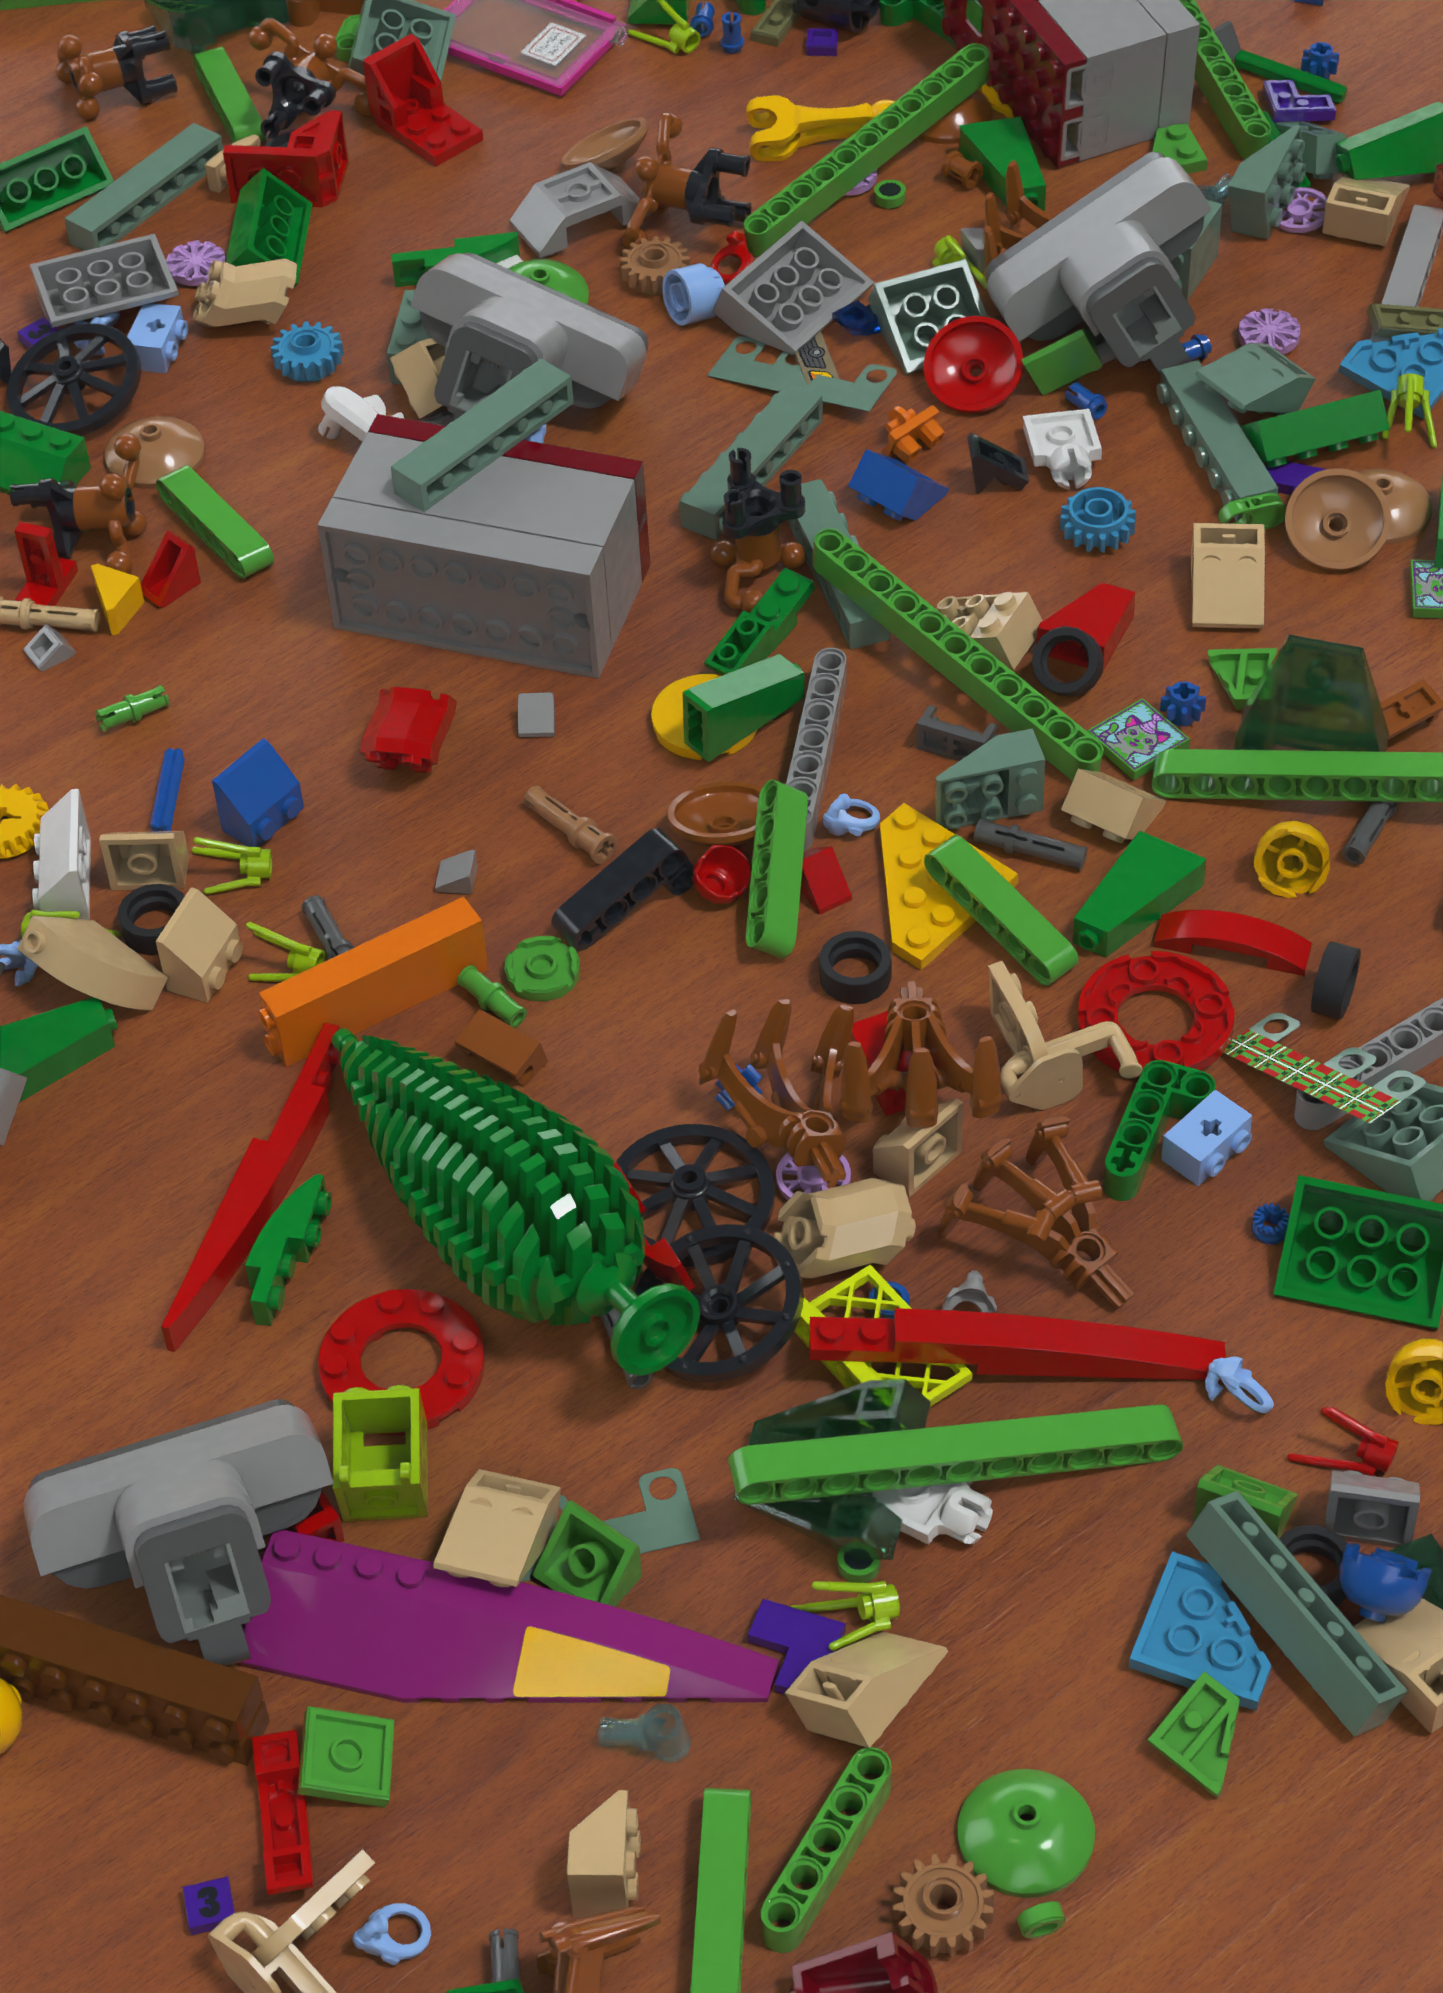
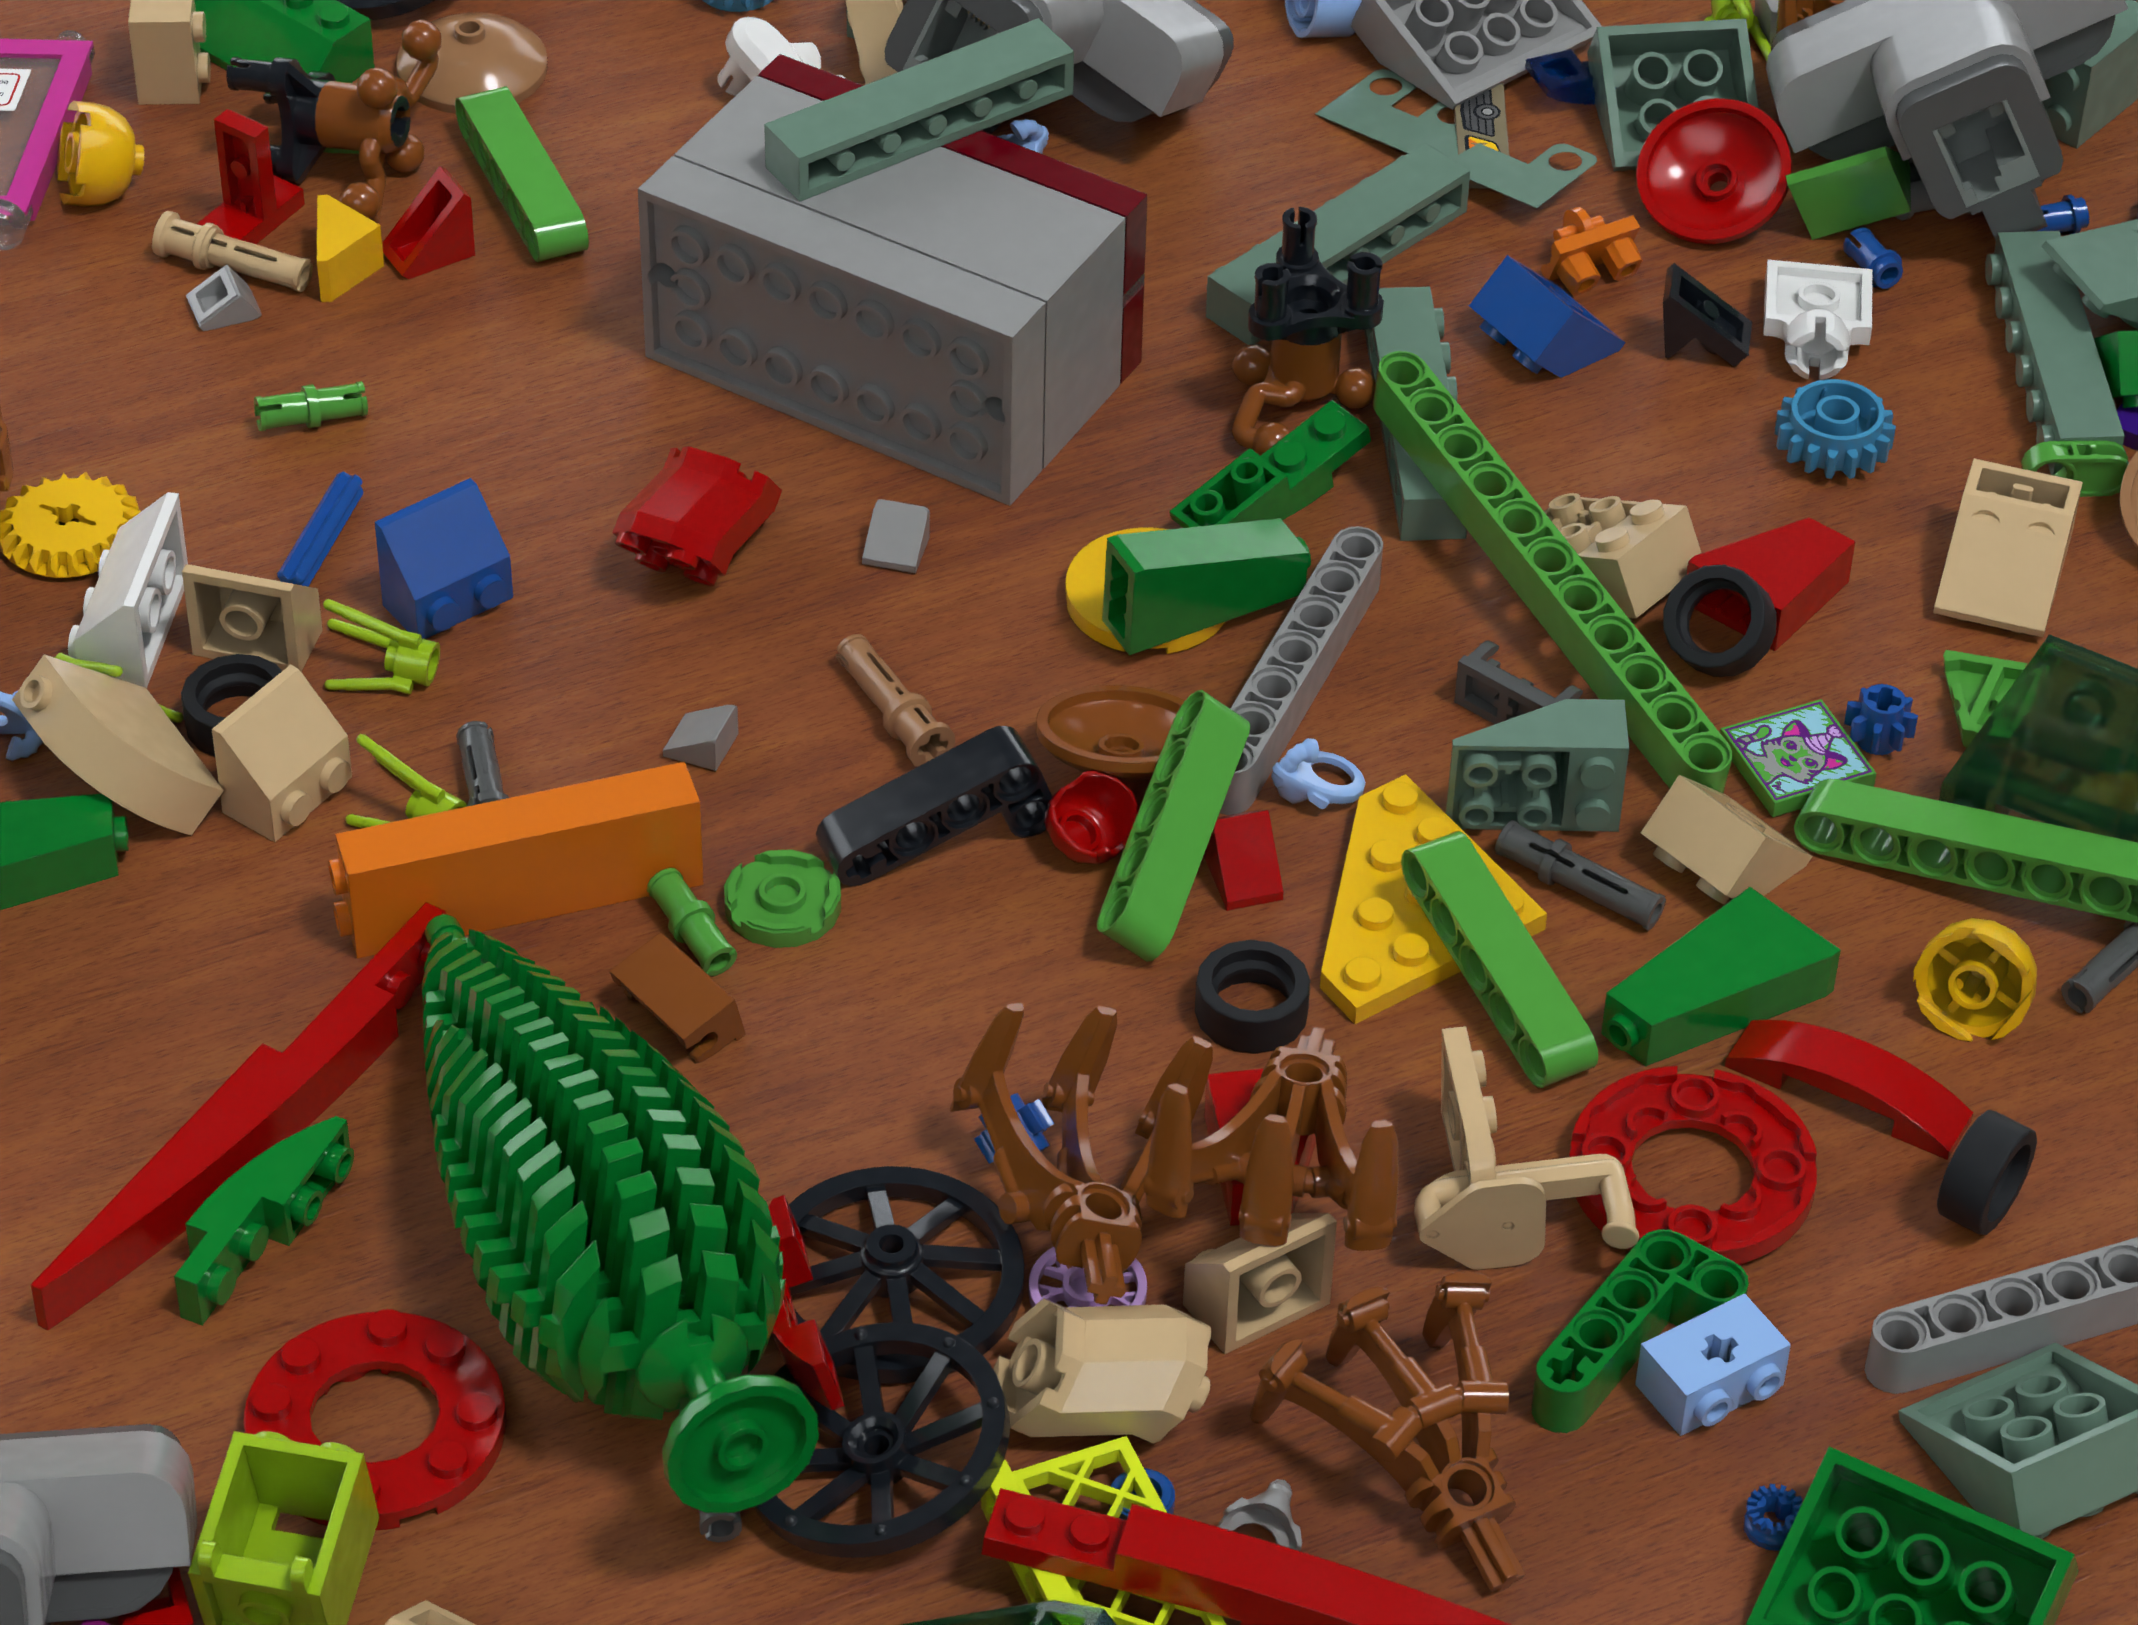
camera: 10 degrees right, 5 degrees down
(1323, 1081) = (1919, 1320): piece -> none

